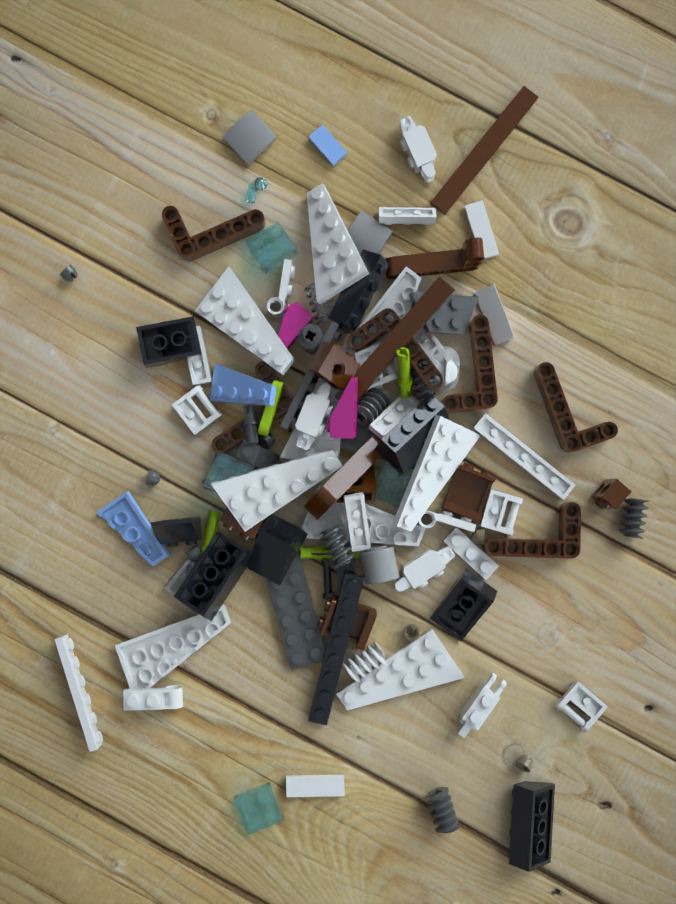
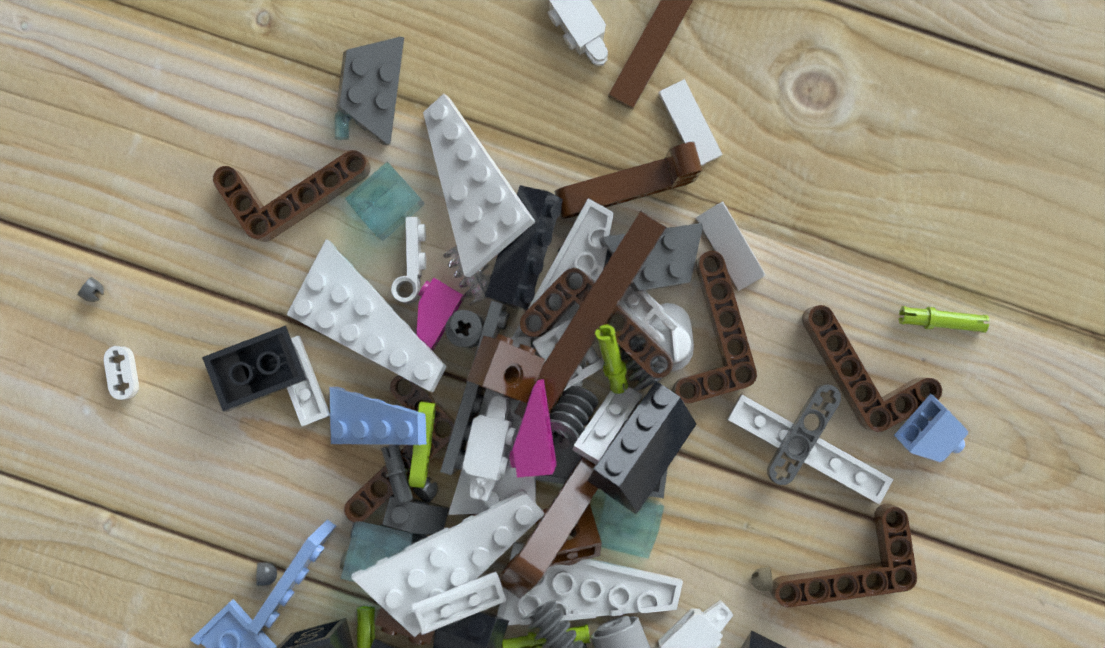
camera: 10 degrees left, 0 degrees up
(84, 331) = (115, 374): none -> white beam
(169, 481) = (294, 574): none -> light blue wing
(192, 414) = (307, 468): white plate -> none
(250, 137) = (322, 42): light grey slope -> none
(275, 169) = (371, 85): none -> dark grey wing
(277, 513) = (458, 603): none -> white tile
(327, 145) = (442, 36): light blue tile -> none
(357, 521) = (579, 592): white plate -> none
(369, 233) = (524, 158): light grey slope -> none
(407, 215) = (577, 120): white plate -> none
(440, 457) = (685, 475): white wing -> none
(447, 517) = (711, 561): white plate -> none
(468, 492) = (736, 516): reddish brown panel -> none
(470, 553) = (755, 605): white plate -> none
(495, 509) = (780, 537): white plate -> none
(519, 443) = (808, 437): none -> dark grey beam
(607, 457) = (932, 431): none -> light blue torso
(610, 494) = (948, 486): reddish brown brick -> none
(619, 384) = (933, 318): none -> lime pin
(633, 517) = (988, 514): dark grey piece -> none

